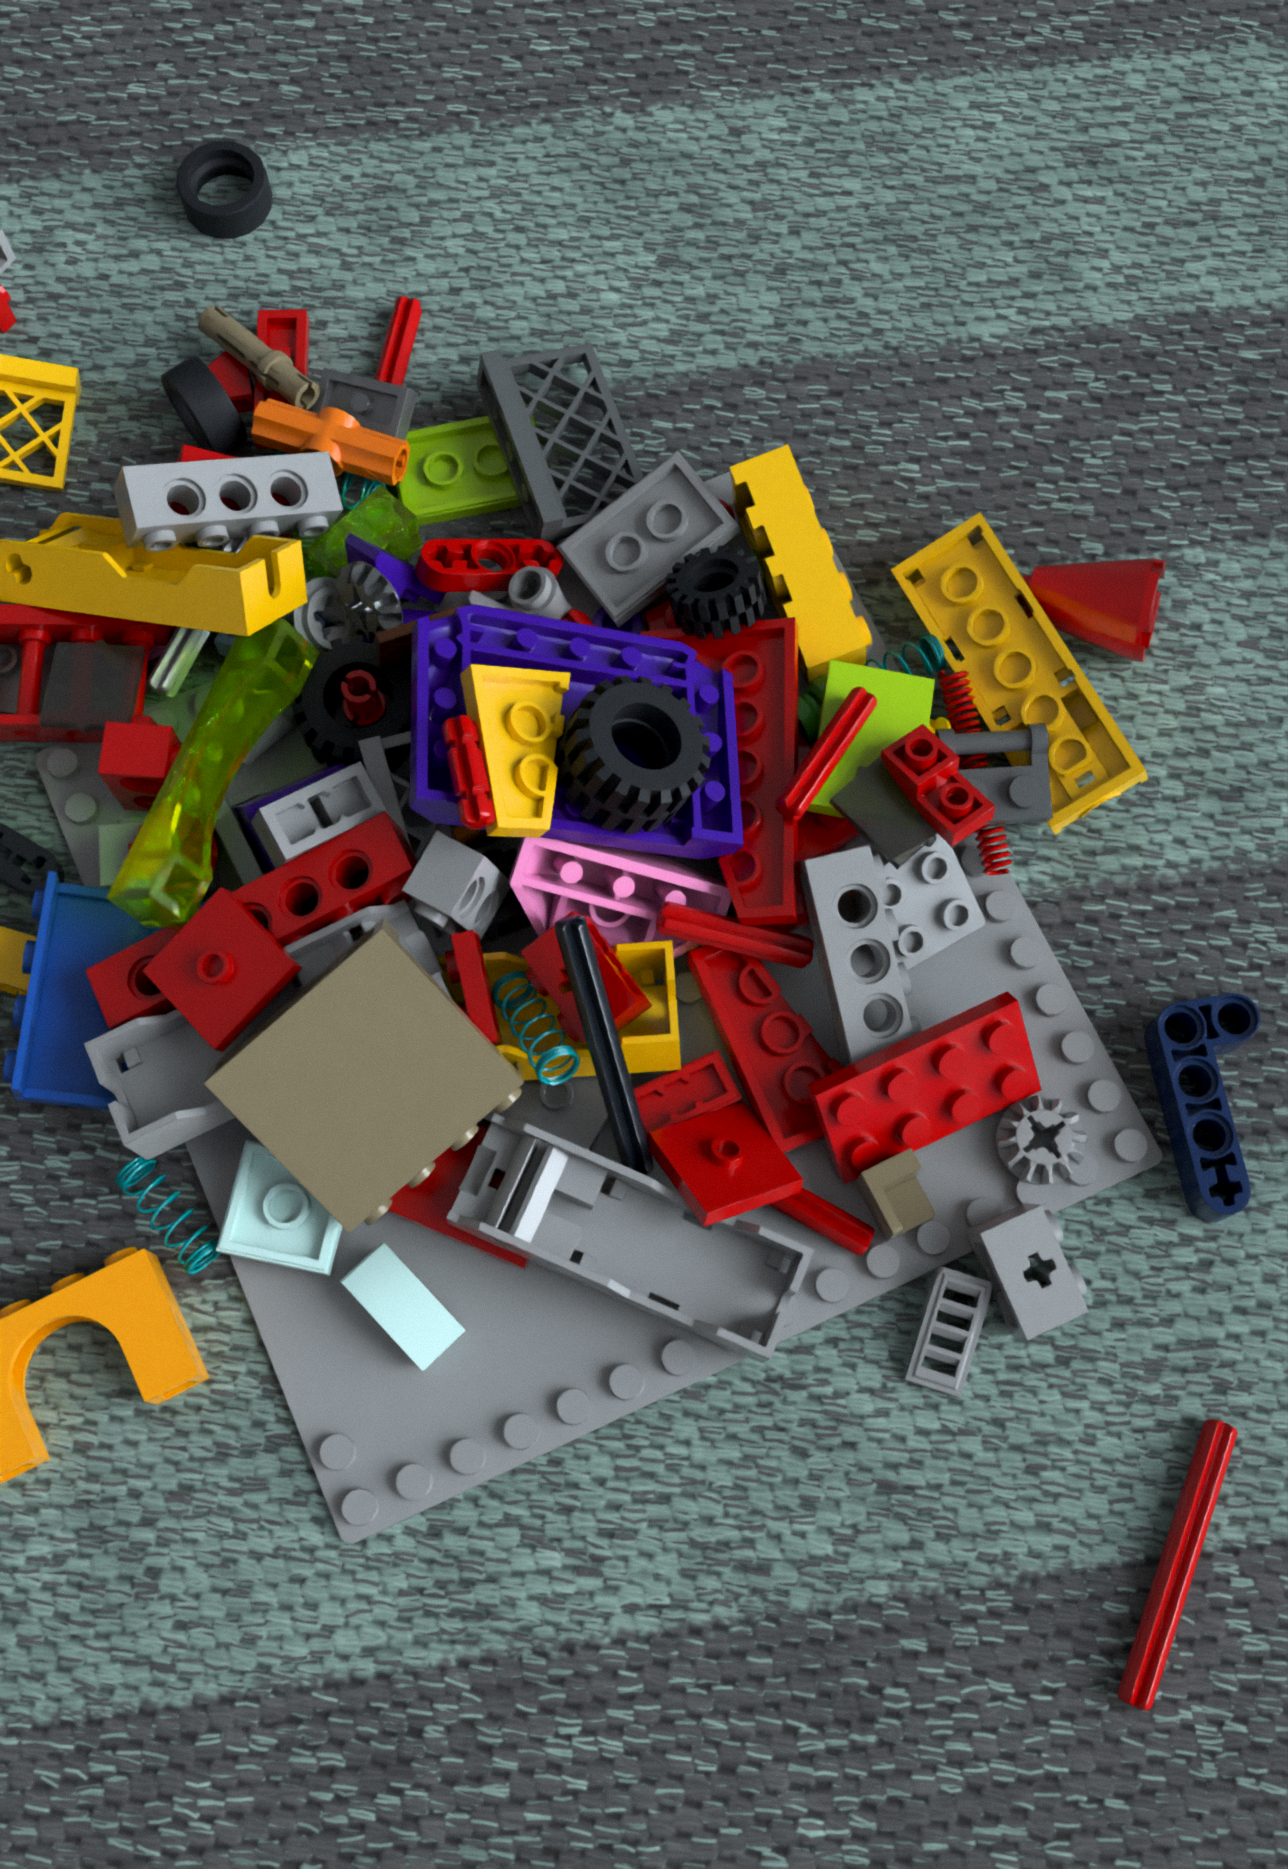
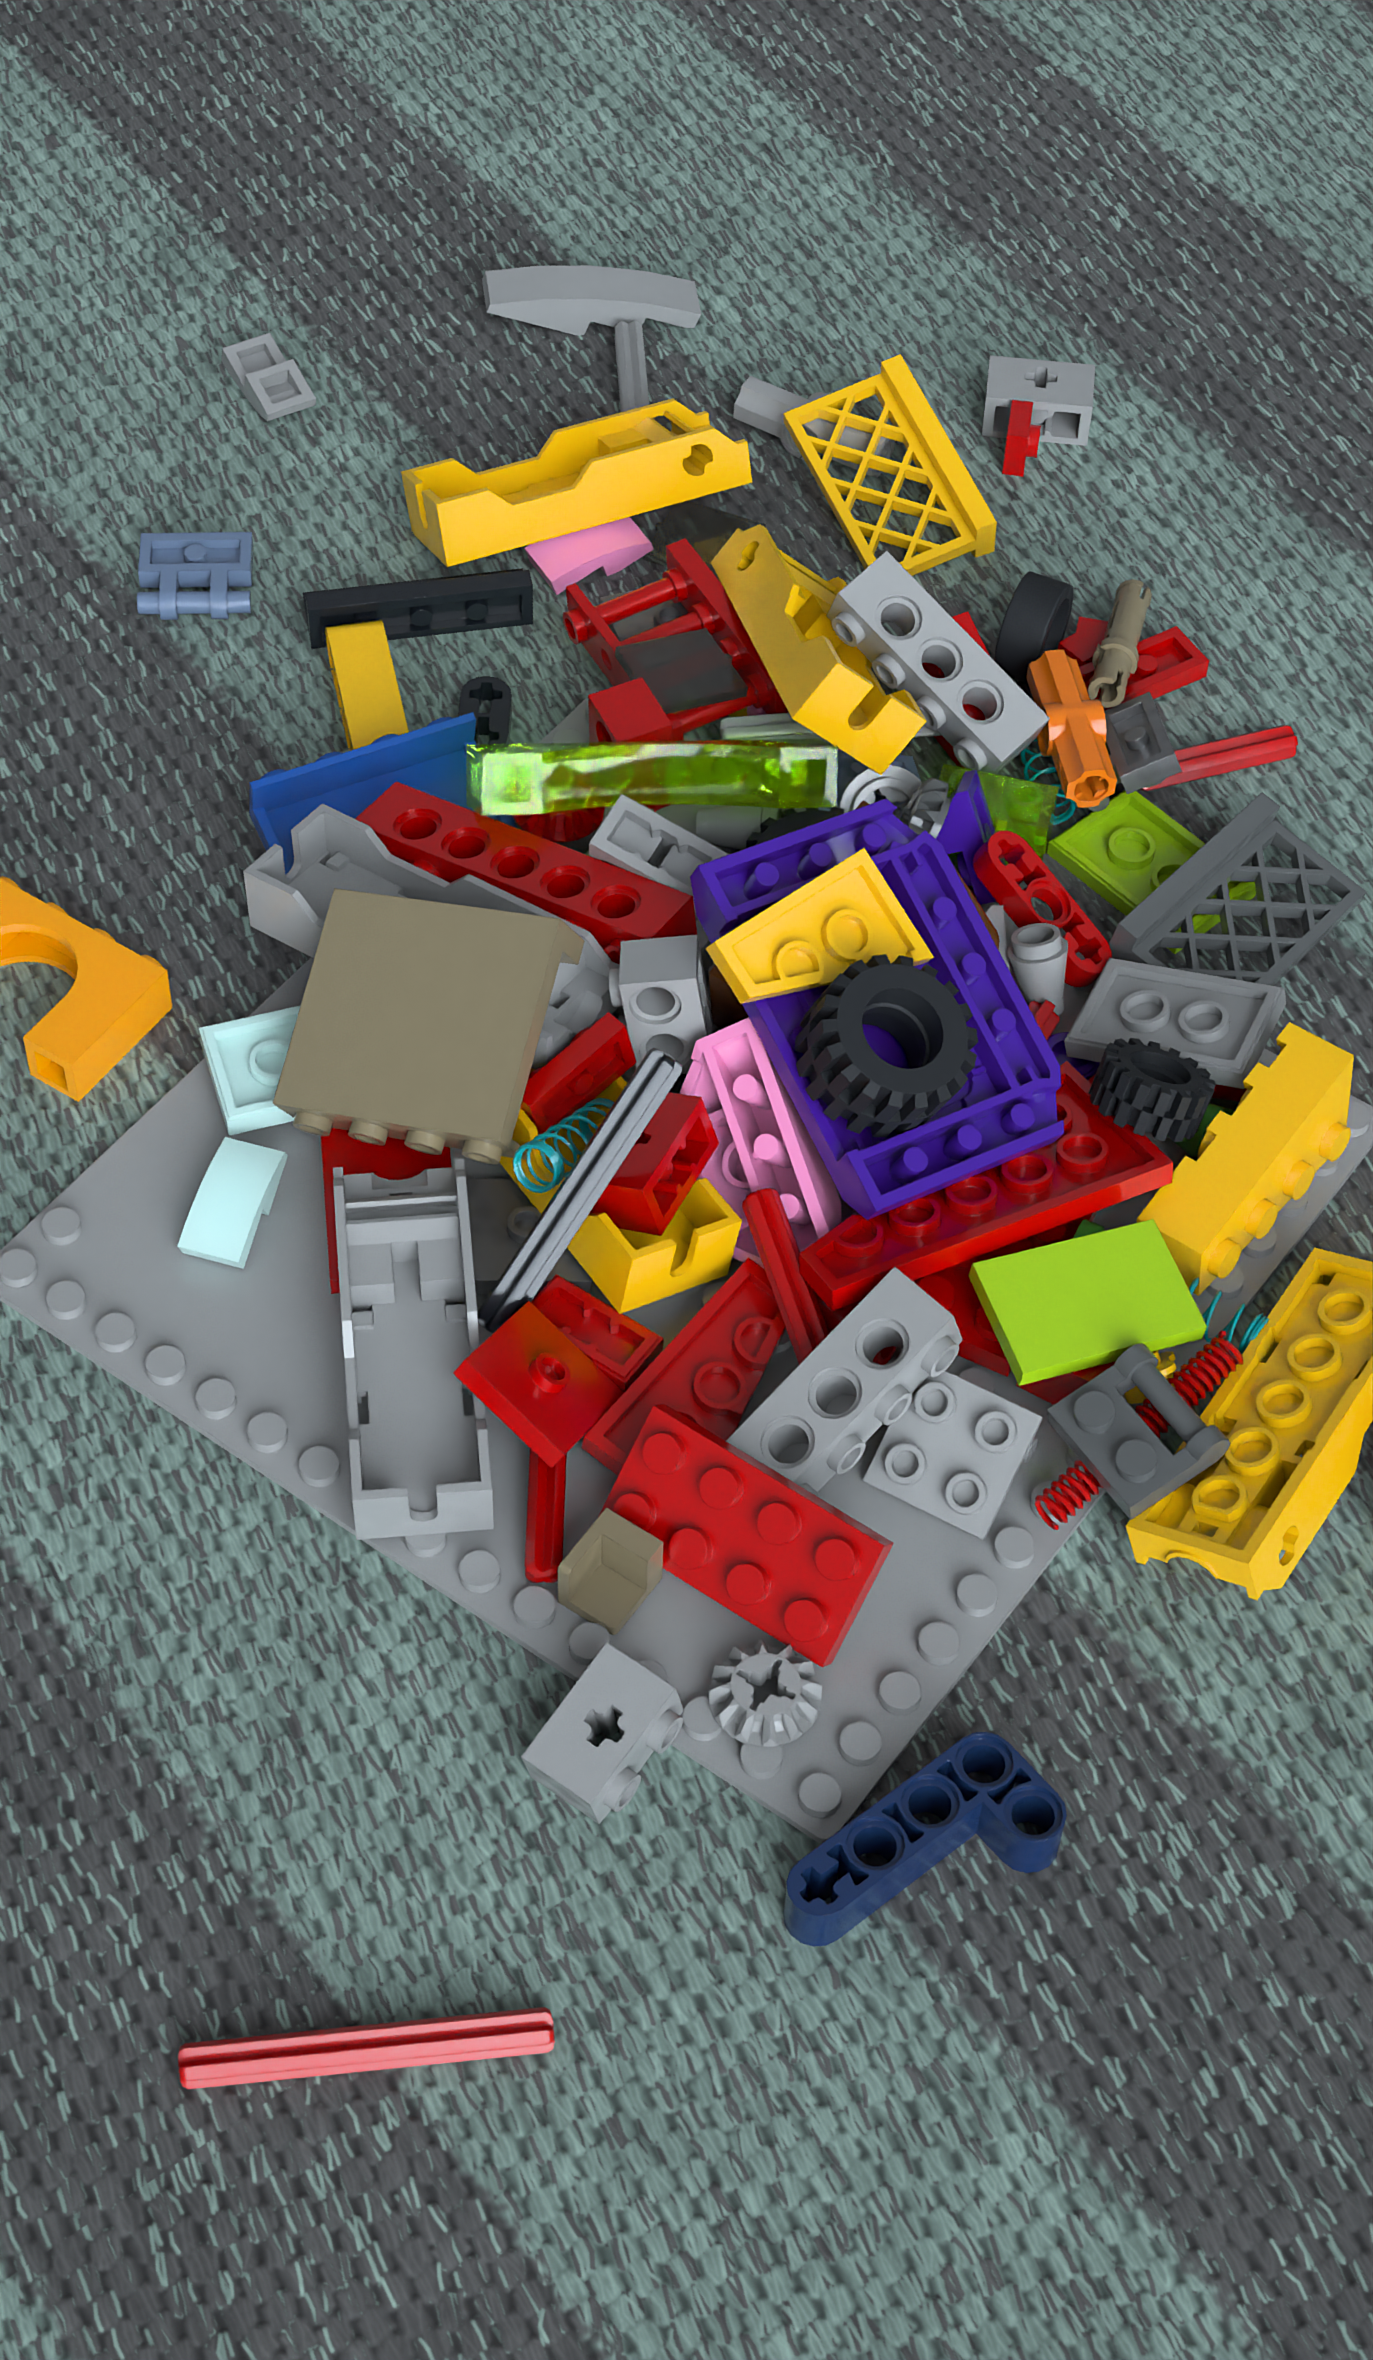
camera: 60 degrees right, 20 degrees down
(139, 1166) = (189, 1018): teal piece -> none
(214, 161) = (1278, 573): black tyre -> none
(221, 969) = (456, 855): red plate -> none
(468, 772) = (752, 894): red axle -> none
(825, 754) = (1033, 1243): red axle -> none
(883, 814) = (1026, 1342): clear smoke piece -> none
(931, 781) = (1072, 1359): red slope -> none
(981, 1291) = (500, 1726): light grey slope -> none

